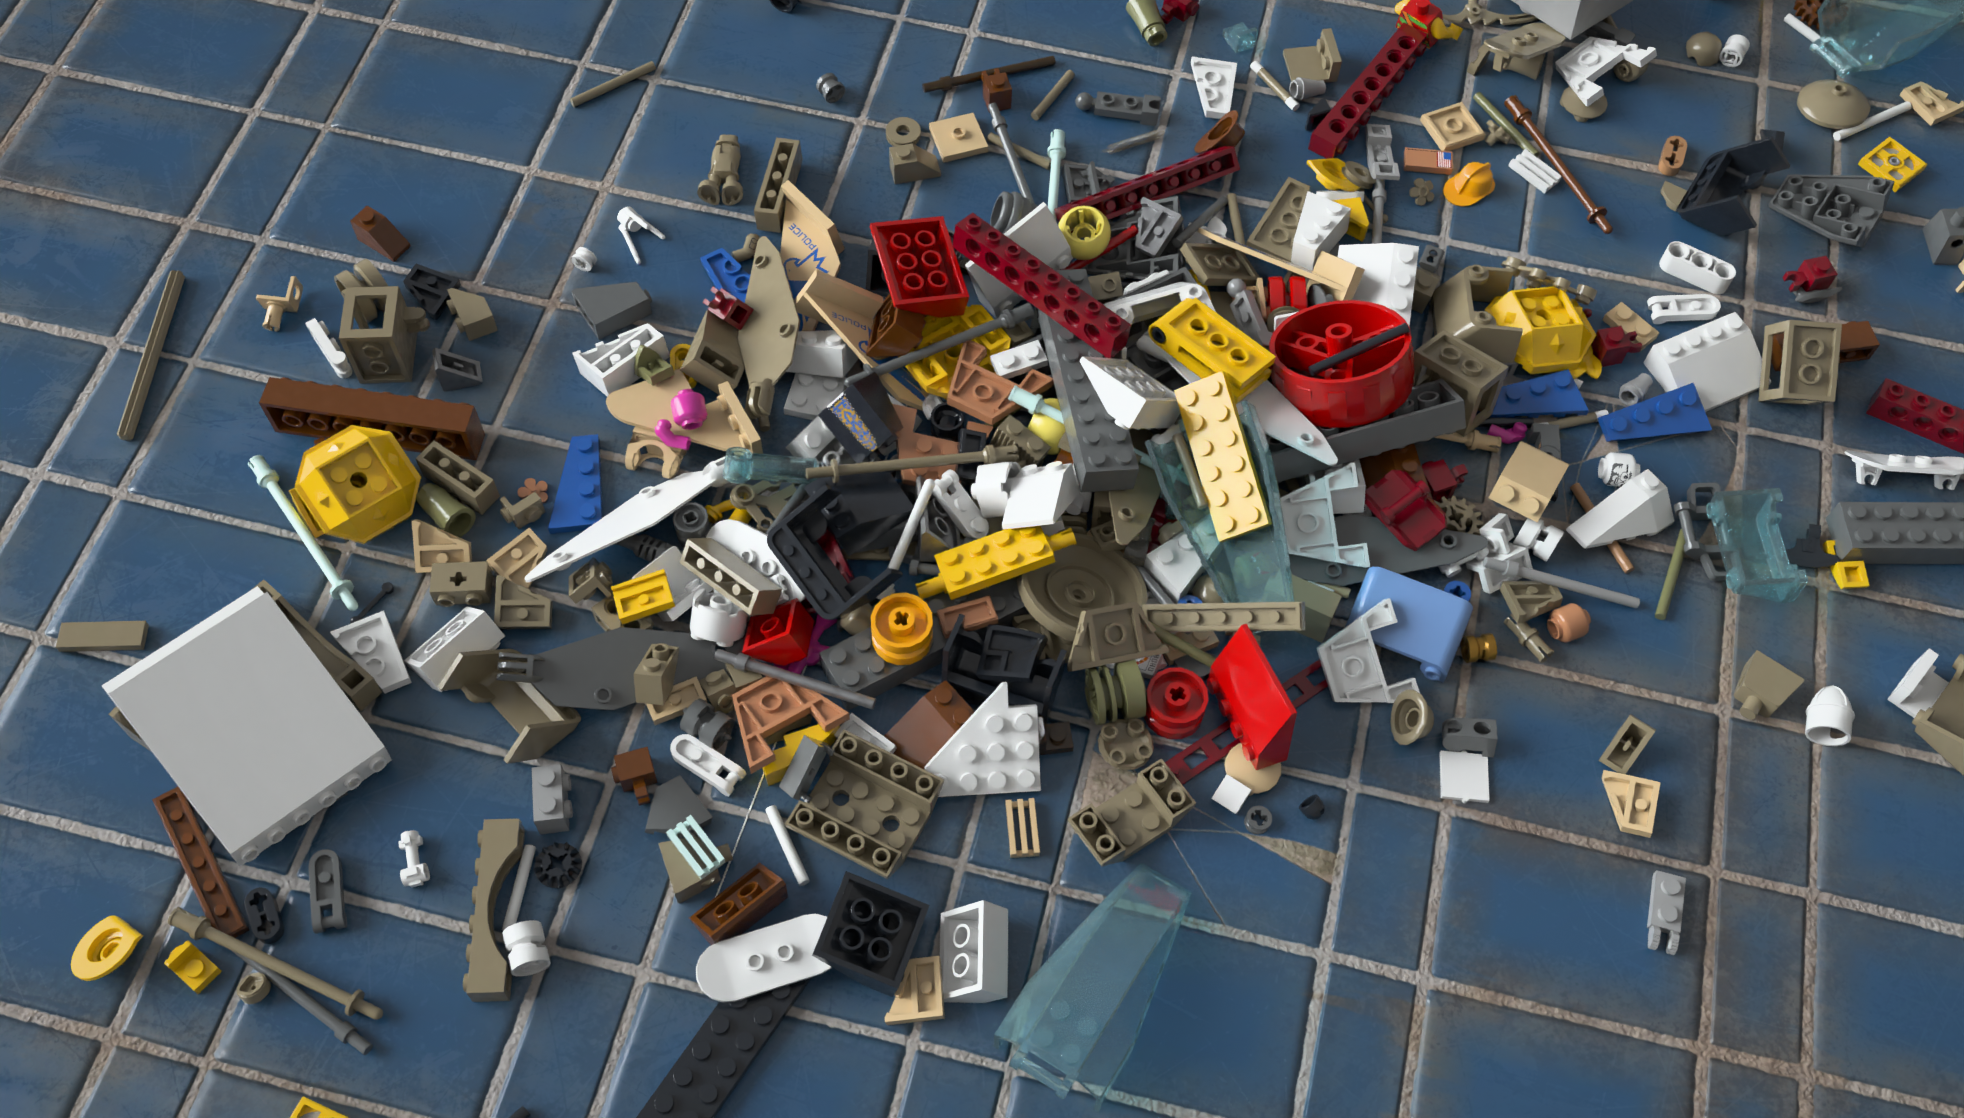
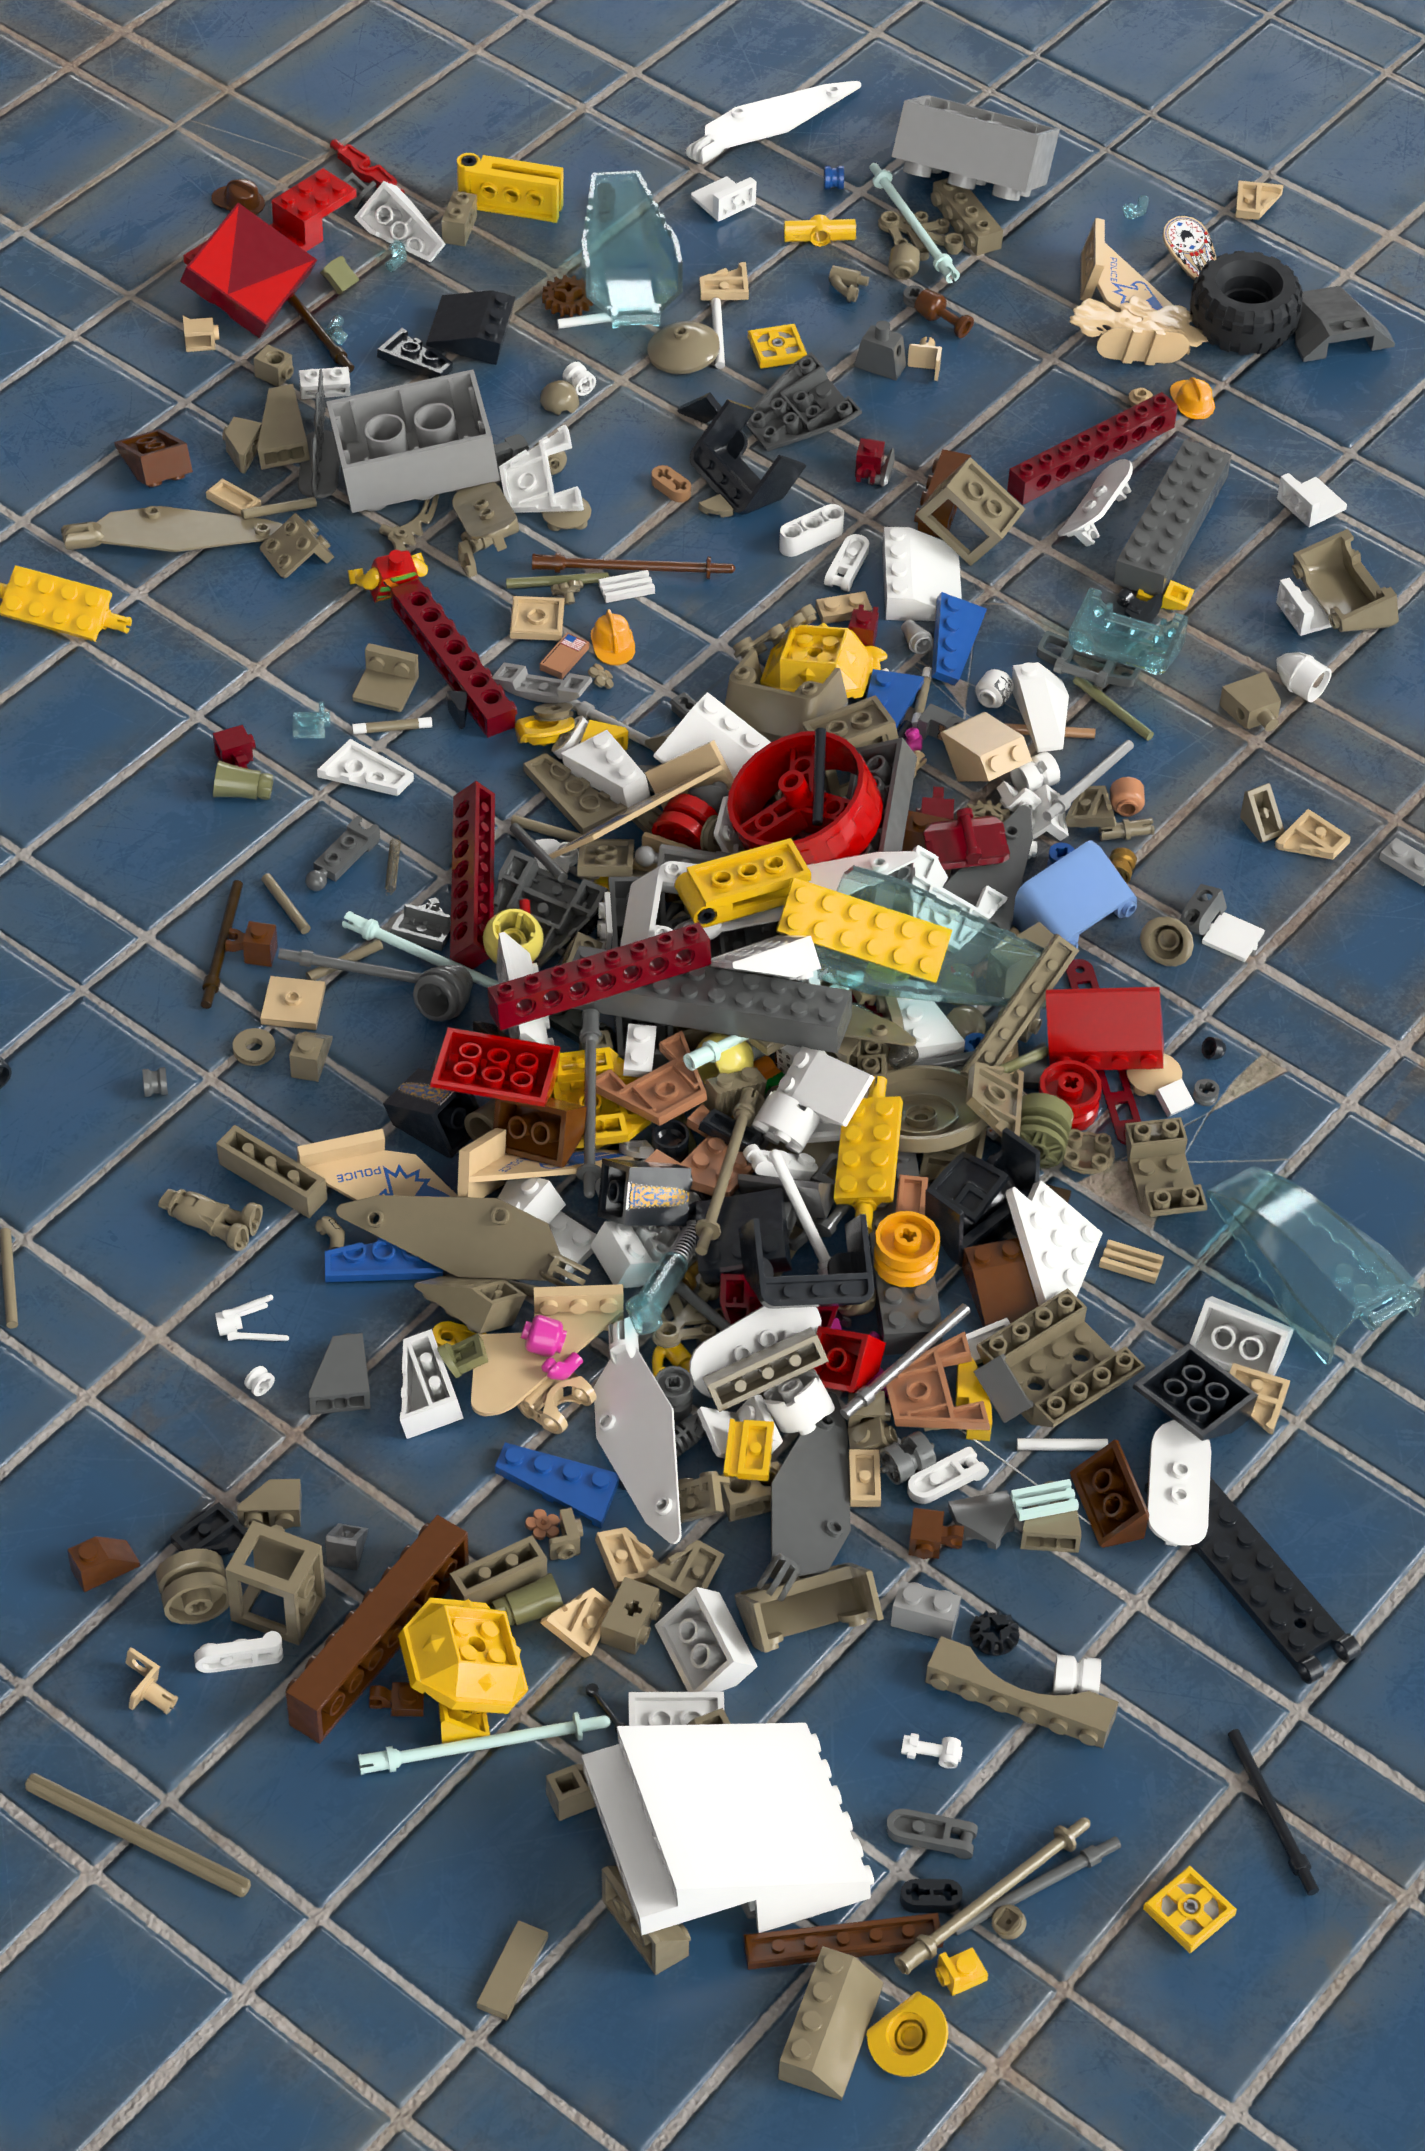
camera: 65 degrees left, 10 degrees down
(106, 883) = (830, 2024): none -> dark tan slope
(519, 886) = (1010, 1675): white bar -> none
(656, 674) = (840, 1471): dark tan slope -> none
(729, 308) = (424, 1264): dark red brick -> none
(1155, 227) = (538, 883): flat silver wing -> none
(1190, 471) = (858, 965): dark tan bar -> none
(1225, 133) = (435, 790): reddish brown piece -> none
(1305, 88) = (416, 702): light grey cone -> none
(1353, 663) = (1100, 956): white wing -> none

